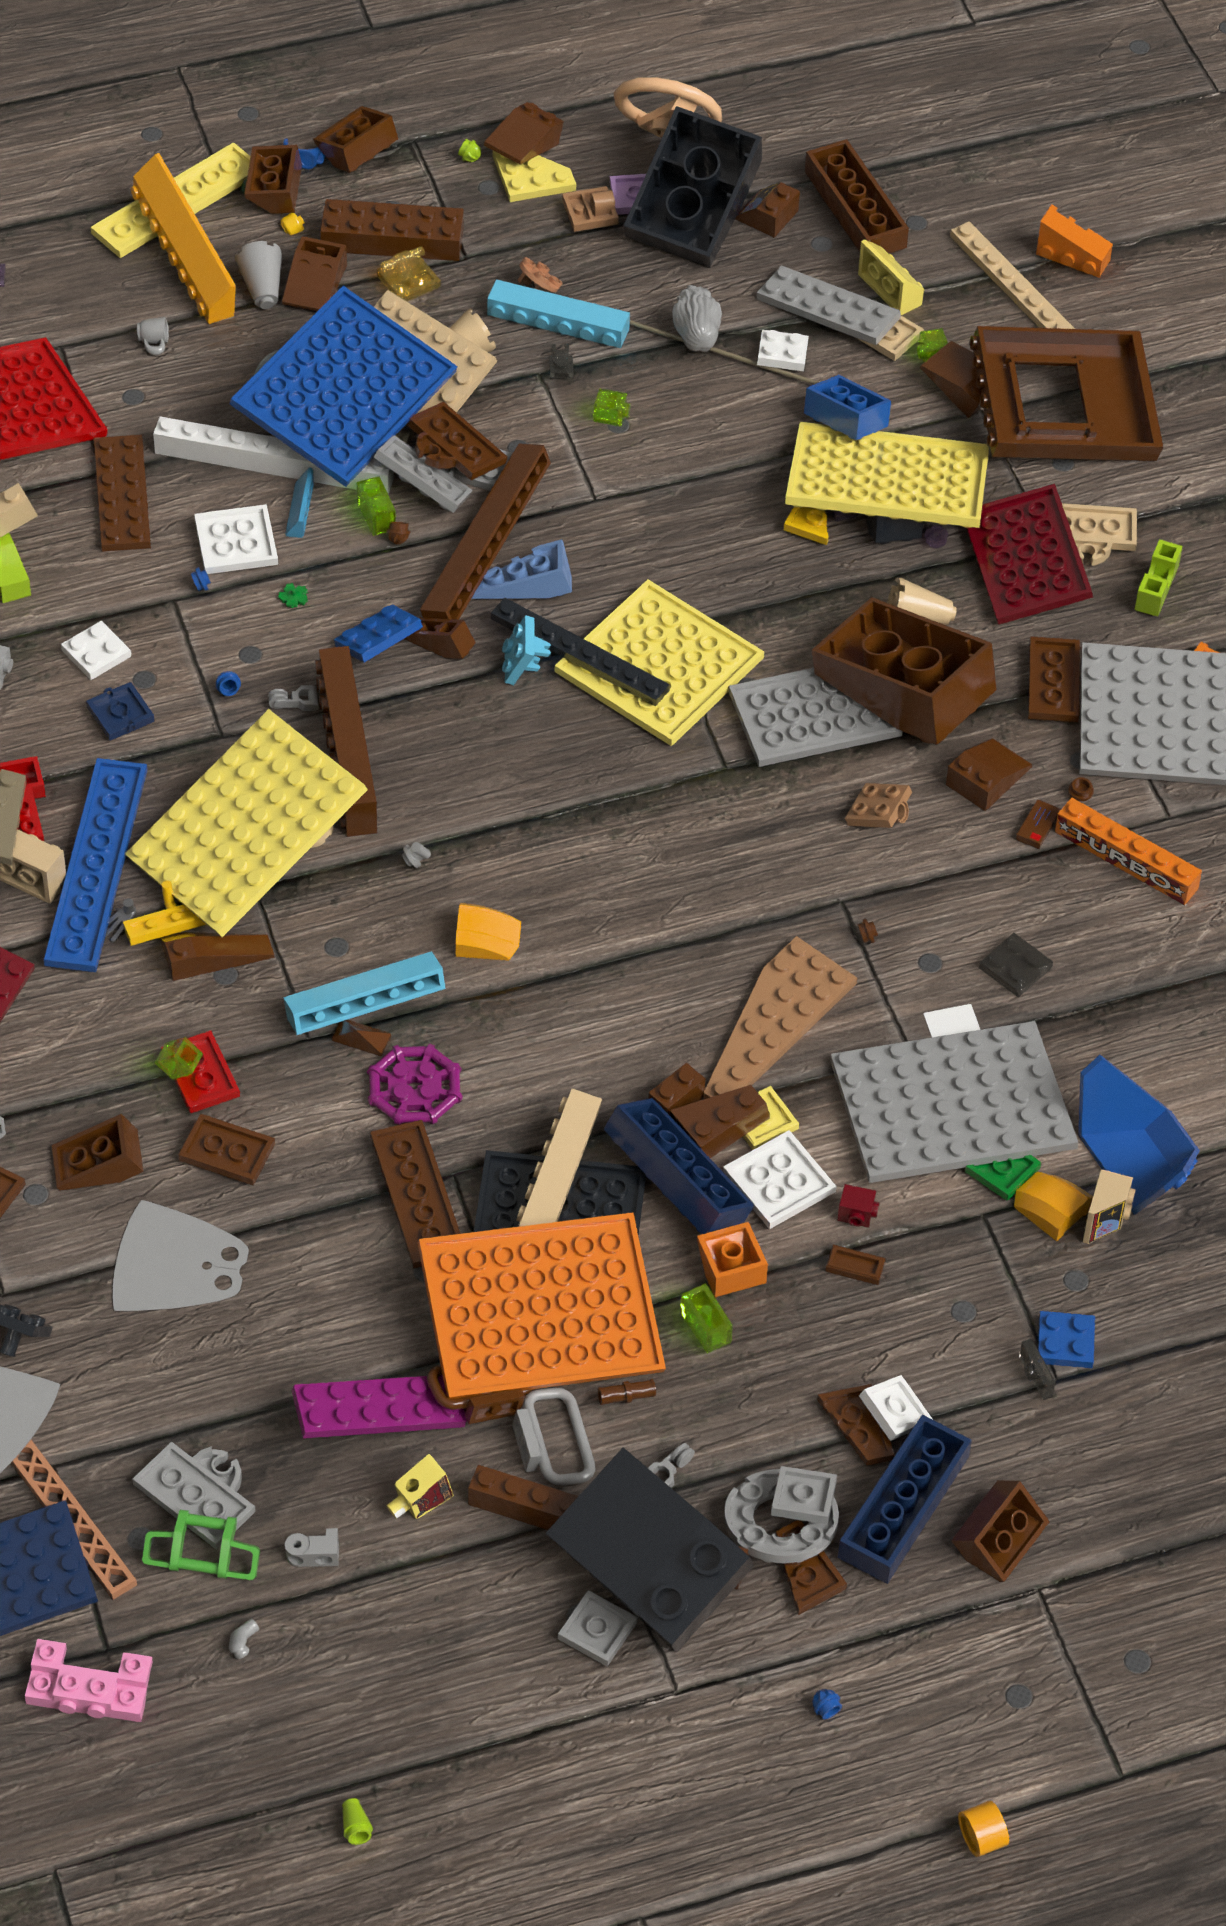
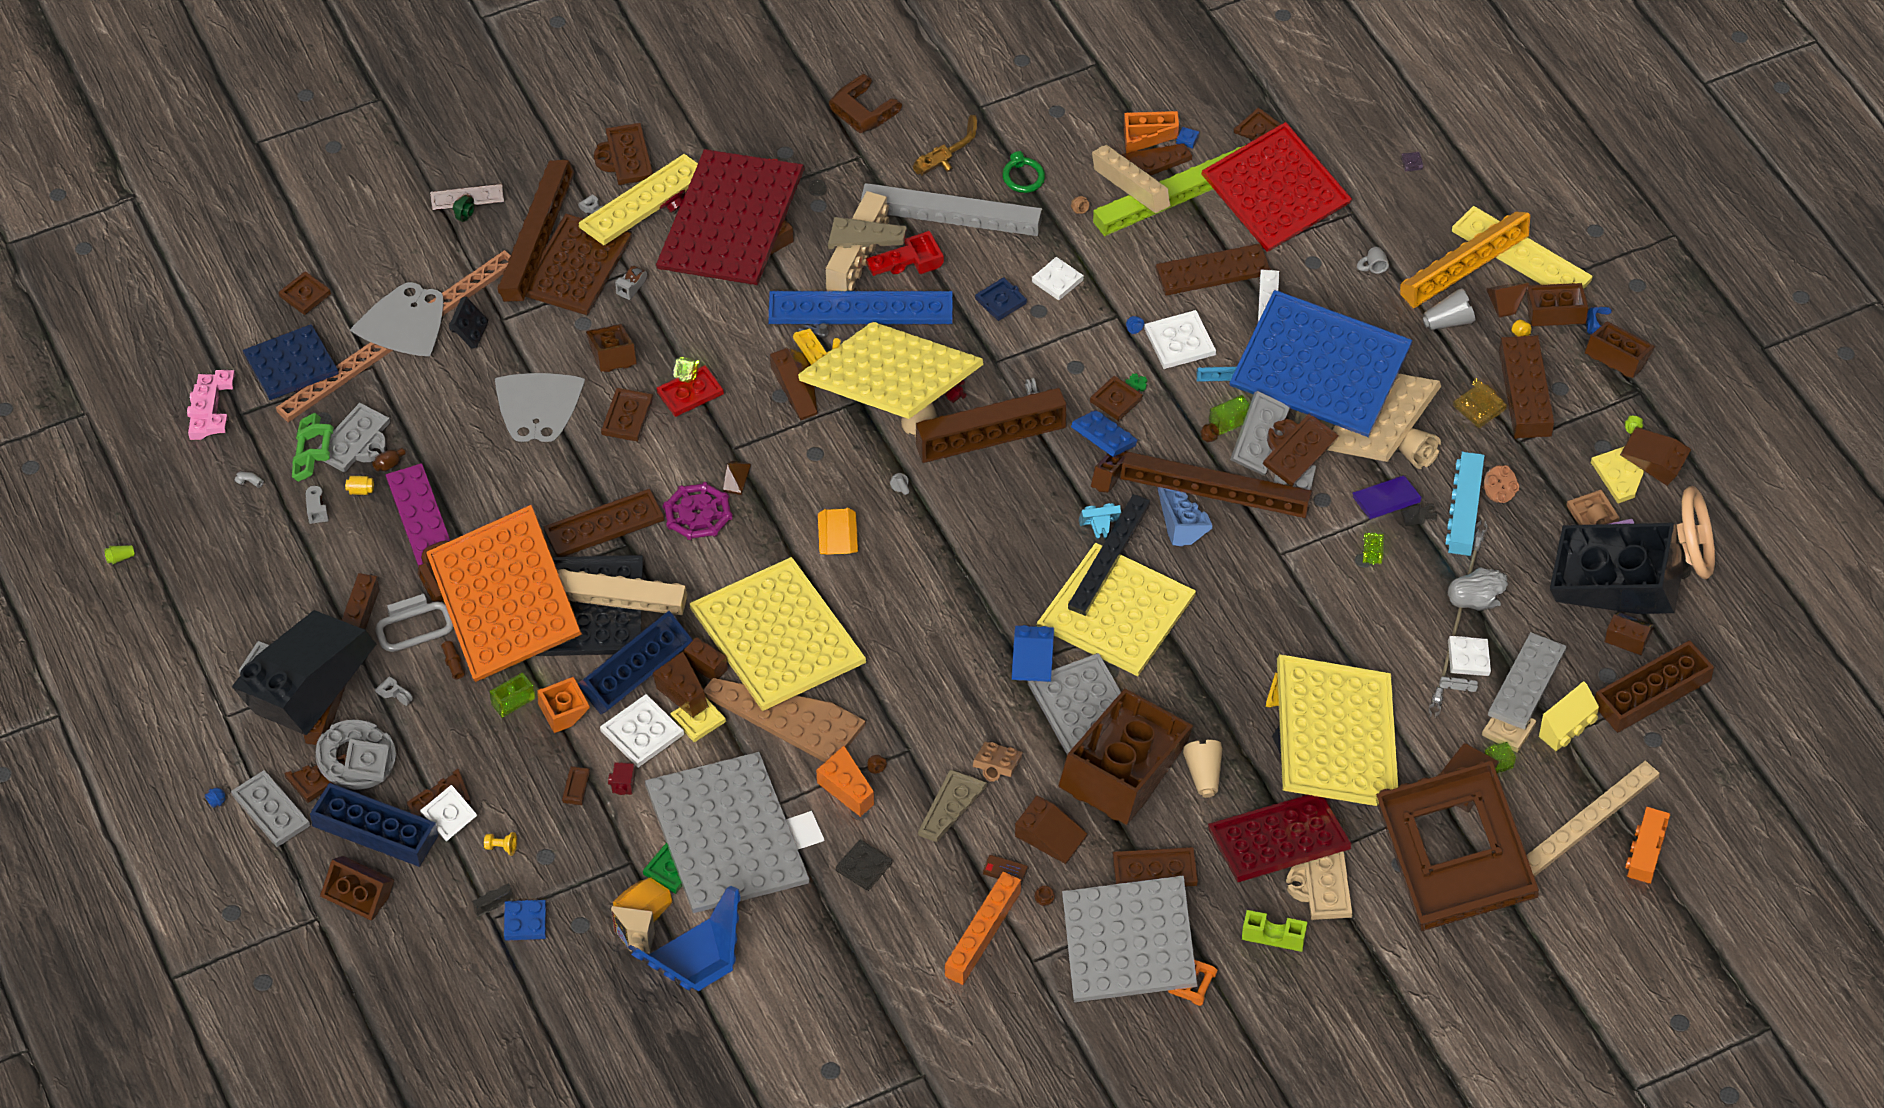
camera: 85 degrees right, 0 degrees up
(228, 683) = (1038, 354): blue plate -> none
(242, 224) = (1507, 298): none -> reddish brown slope
(247, 1450) = (387, 459): none -> reddish brown plant
(289, 1488) = (359, 485): none -> yellow brick
(314, 273) = (1461, 345): reddish brown slope -> none
(319, 615) = (1116, 398): none -> reddish brown plate
(364, 993) = (768, 469): medium azure brick -> none
(421, 1489) = (361, 553): light yellow torso -> none
(534, 383) = (1386, 497): none -> dark purple tile
(647, 1009) = (777, 633): none -> light yellow plate
(725, 746) = (1033, 653): none -> blue slope
(823, 365) = (1458, 684): none -> light grey axle
(847, 407) = (1403, 696): blue brick -> none
(854, 1633) = (270, 808): none -> light grey plate
(894, 962) = (846, 782): none -> orange wedge
(931, 862) = (950, 803): none -> dark tan wing
(948, 1343) = (509, 843): none -> yellow piece
(983, 1828) = (119, 890): light orange piece -> none

